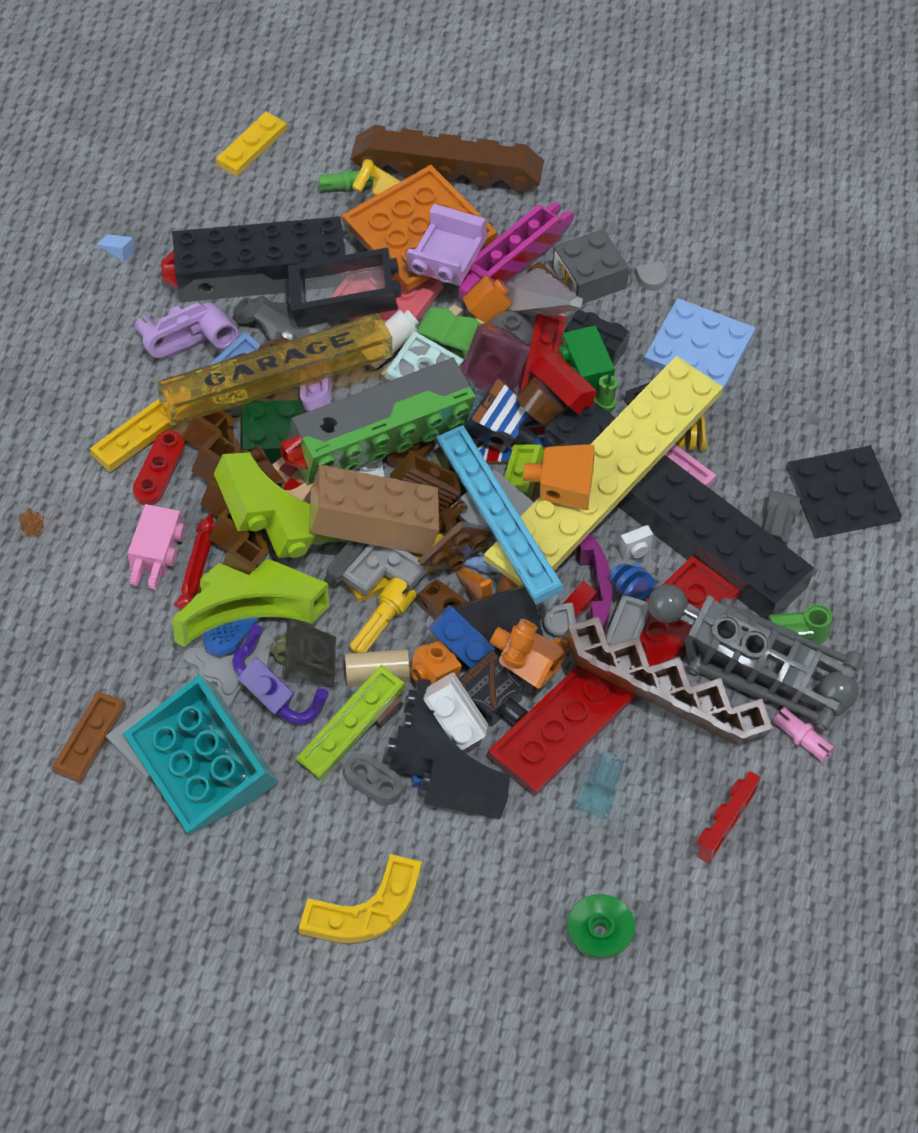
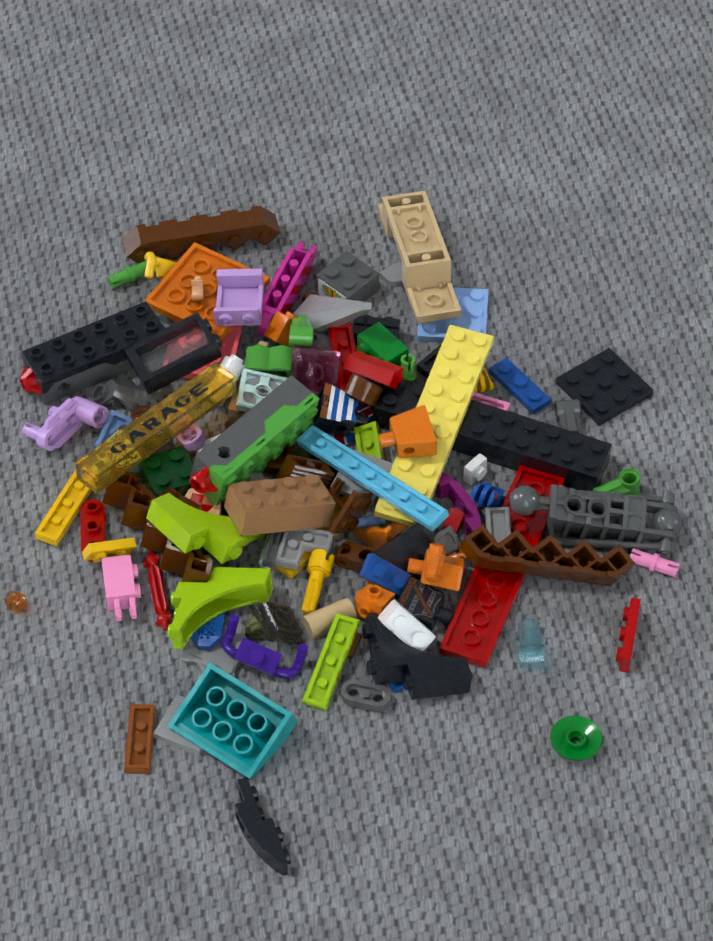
camera: 20 degrees left, 5 degrees down
(161, 496) = (106, 549): none -> yellow plate
(167, 901) = (259, 831): none -> black slope
(251, 143) = (40, 269): yellow plate -> none
(370, 918) = (408, 792): yellow plate -> none
(406, 220) = (197, 288): none -> light nougat piece
(497, 309) = (301, 332): none -> bright green piece
(686, 264) = (423, 256): none -> tan bracket
(740, 457) = (519, 386): none -> blue plate

